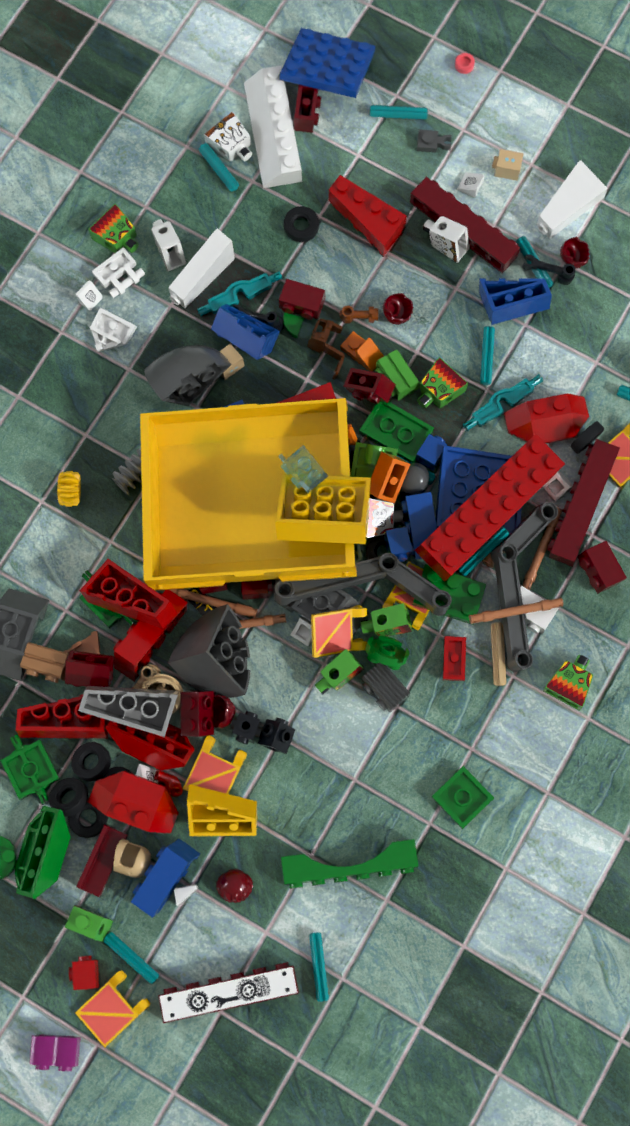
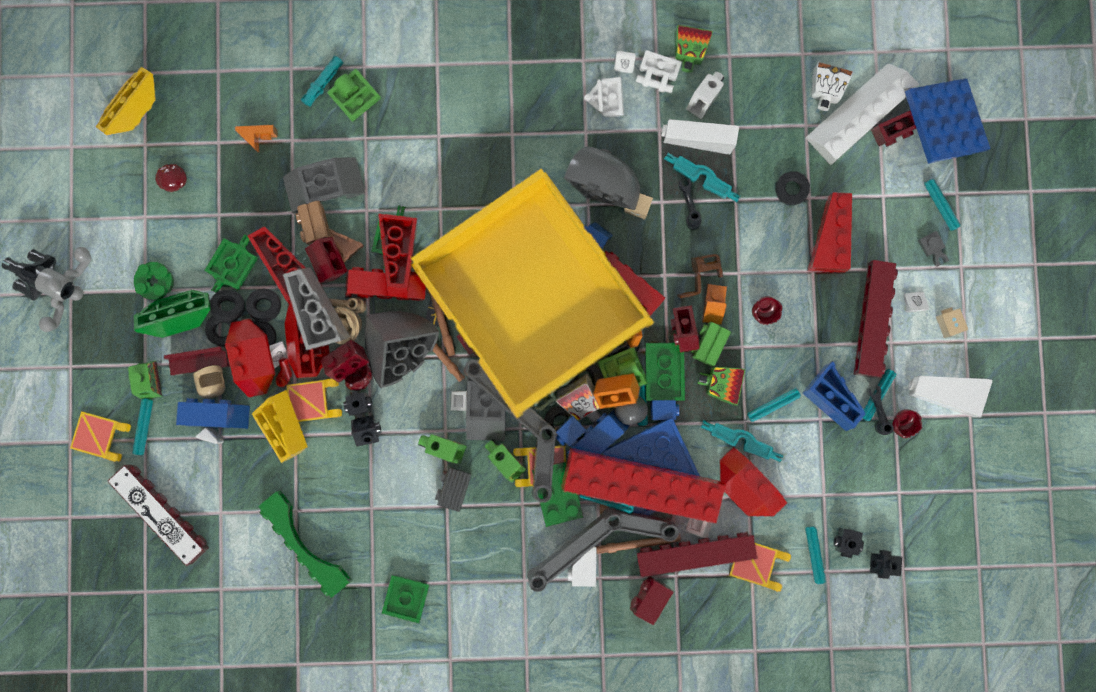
camera: 55 degrees right, 10 degrees up
(54, 1051) = (44, 415): magenta brick -> none
(69, 488) = (458, 151): yellow gear -> none
(84, 973) = (110, 401): red brick -> none
(130, 474) = (496, 188): light grey piece -> none
(218, 166) = (799, 91): teal axle -> none
(234, 886) = (238, 469): dark red hair -> none
(245, 331) = (669, 203): blue wedge -> none
(293, 324) = (702, 235): green tile -> none
(301, 299) = (726, 230): dark red brick -> none
(304, 468) = (568, 326): clear light blue bracket -> none
(319, 967) = (217, 567): teal axle -> none
(329, 513) = (548, 361): yellow slope -> none
(334, 633) = (470, 425): flag -> none
(347, 314) = (738, 274): dark orange bar -> none
(387, 652) = (472, 469): green plate -> none
(448, 237) = (854, 313): white torso -> none
(454, 658) = (508, 528): red plate -> none
(464, 63) = (1022, 231): coral tile -> none
(489, 615) = (588, 573): nougat piece -> none
(498, 654) = (533, 559): tan axle -> none
(571, 683) = (544, 629): torso -> none
(587, 437) = (751, 527): black tyre -> none

